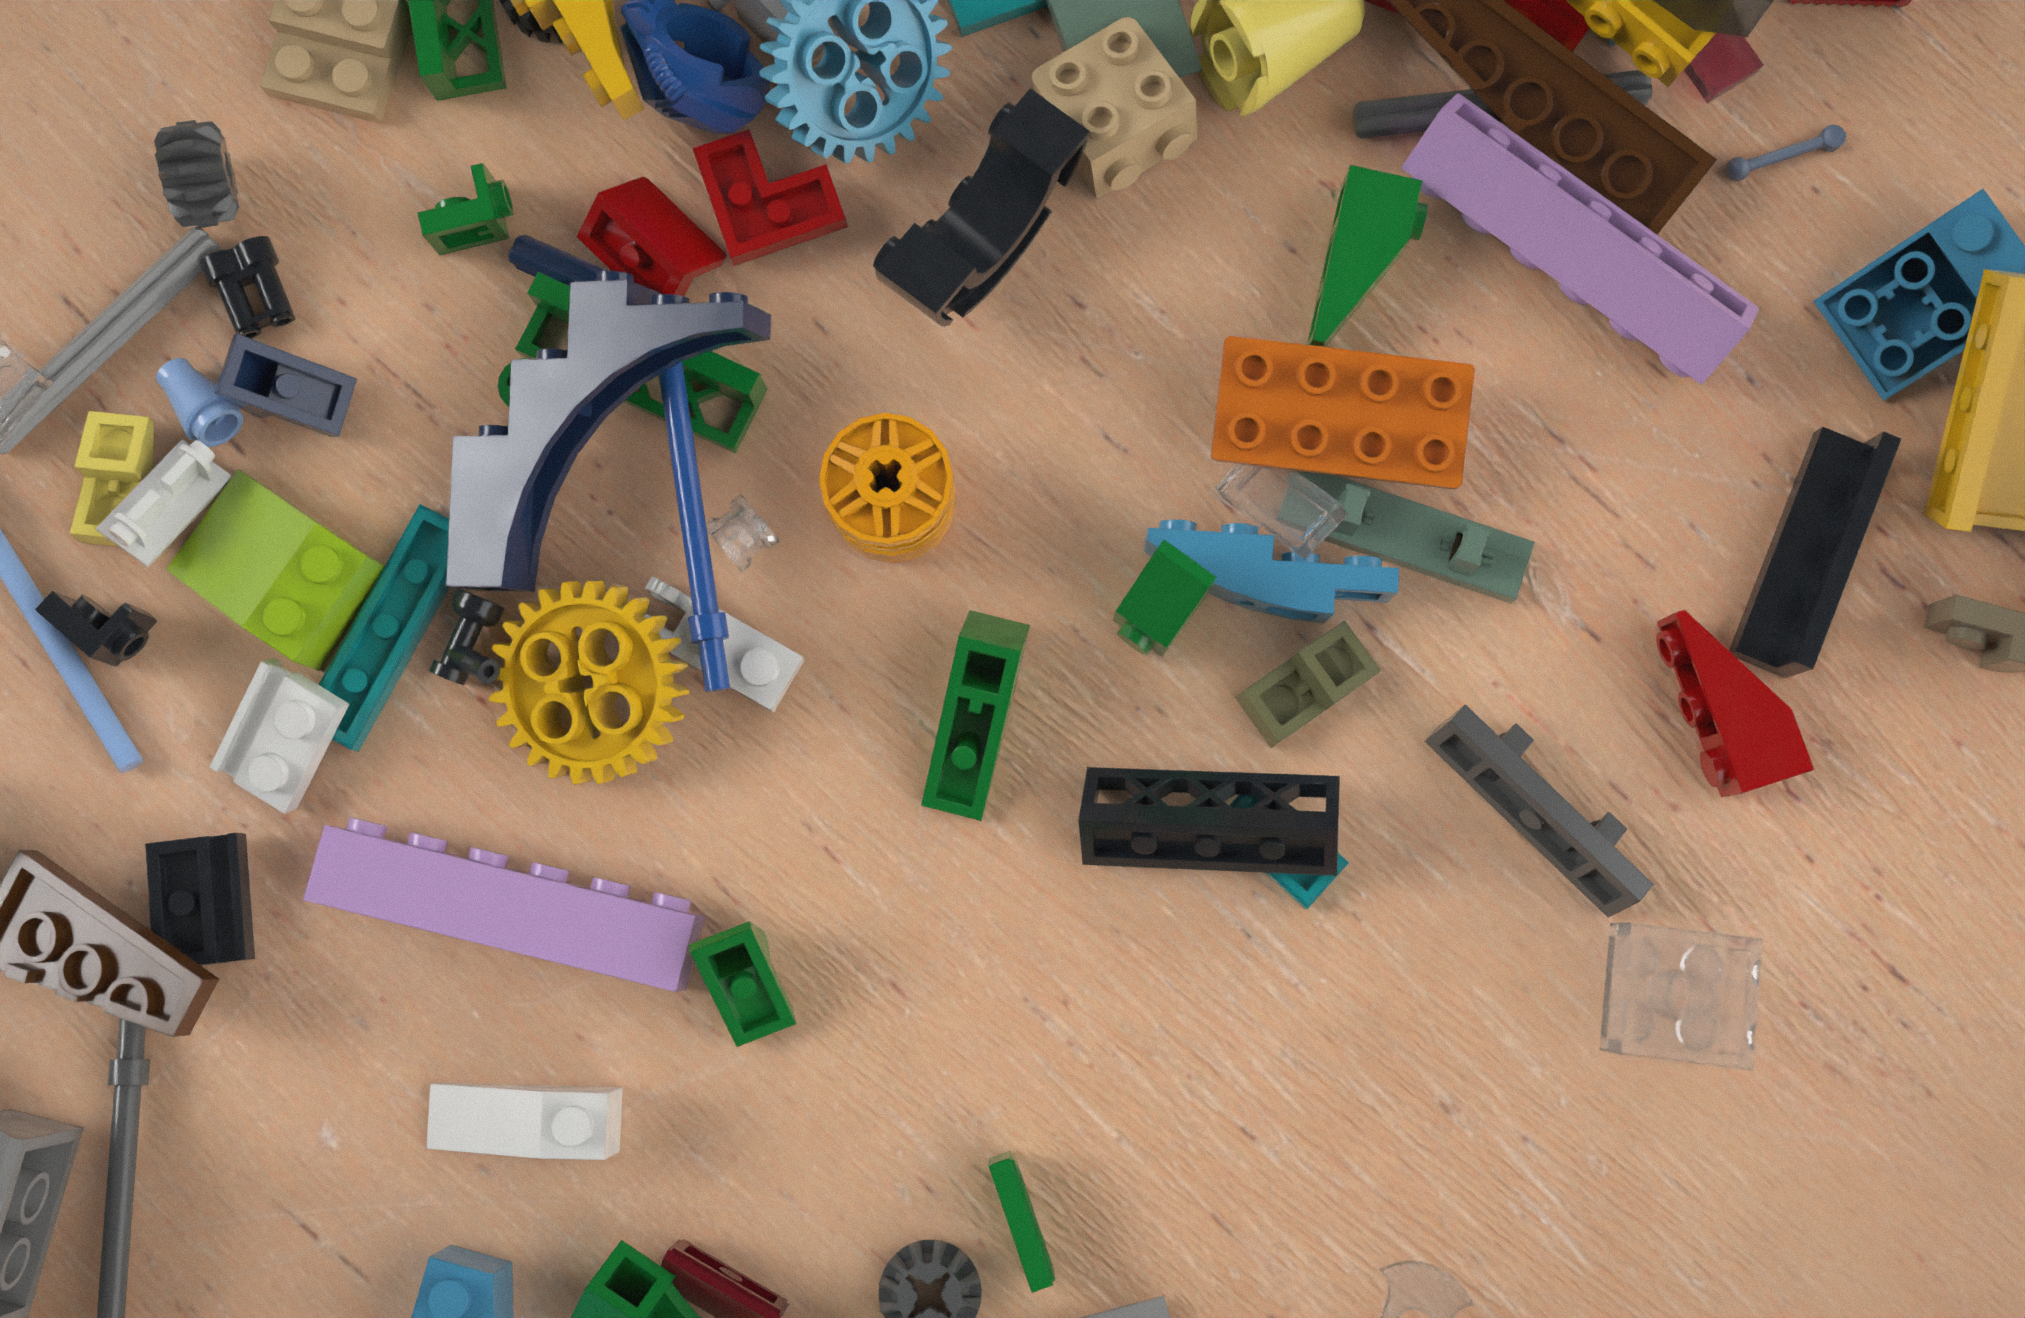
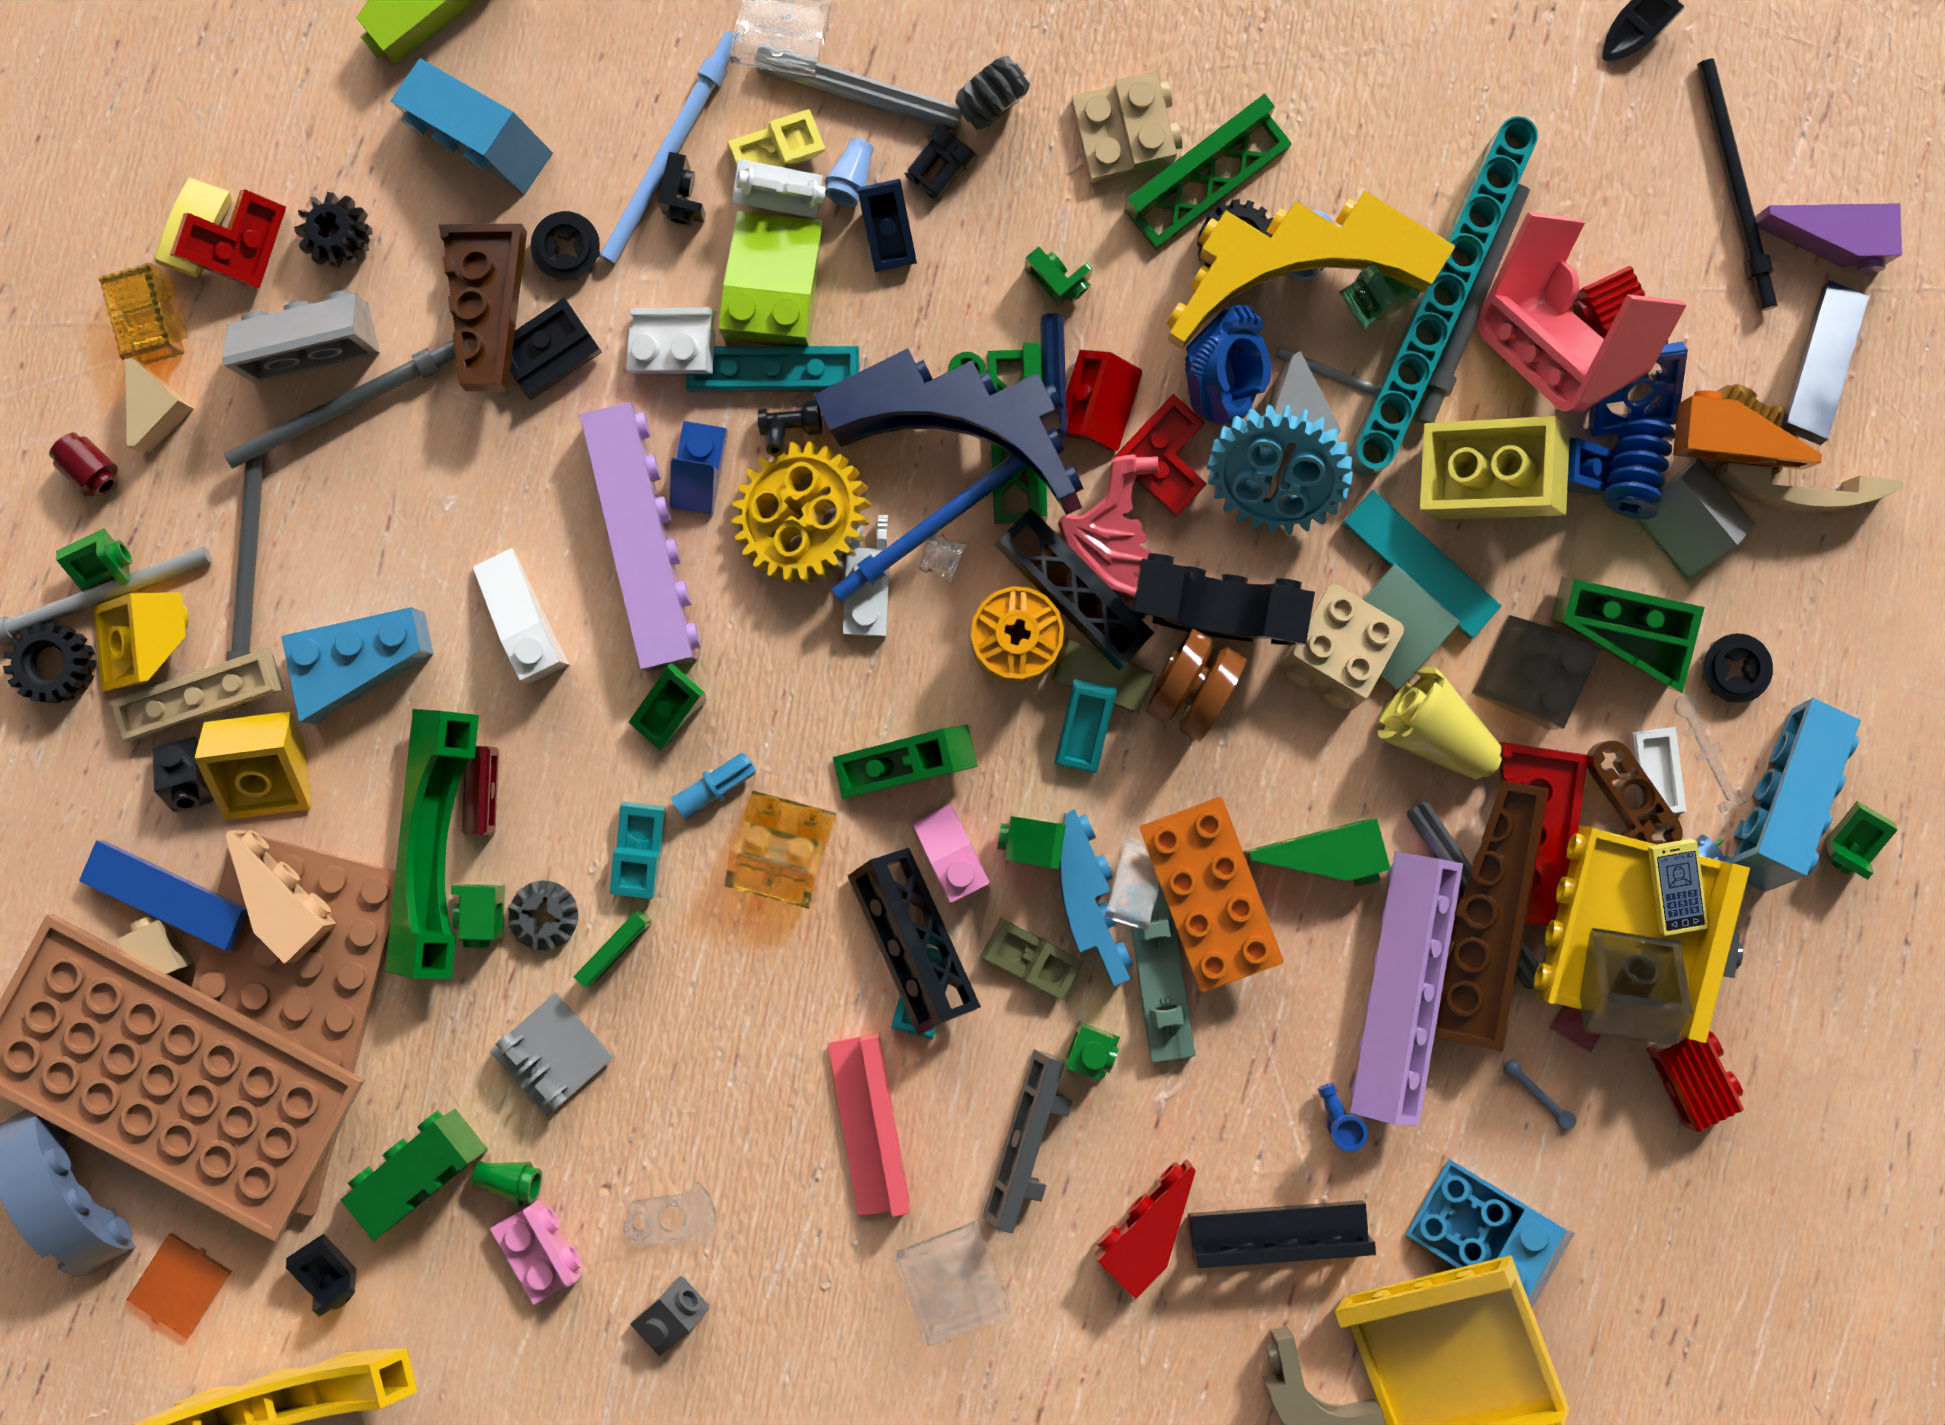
camera: 55 degrees right, 5 degrees up
(61, 795) = (565, 226): none -> black gear
(460, 788) = (697, 468): none -> blue slope
(828, 323) = (1106, 537): none -> coral animal
(868, 383) = (1074, 587): none -> black fence
(878, 977) = (714, 785): none -> dark azure axle
(909, 1121) = (638, 850): none -> teal slope
(997, 412) = (1090, 665): none -> olive slope
(1005, 933) = (779, 849): none -> clear yellow slope
(1048, 465) = (1085, 725): none -> teal tile
(1069, 297) = (1199, 687): none -> dark orange wheel
(1124, 715) = (950, 853): none -> bright pink slope
(1420, 1002) = (869, 1125): none -> coral panel
(1464, 667) = (1091, 1051): none -> green brick
(1725, 396) = (1345, 1129): none -> blue piece

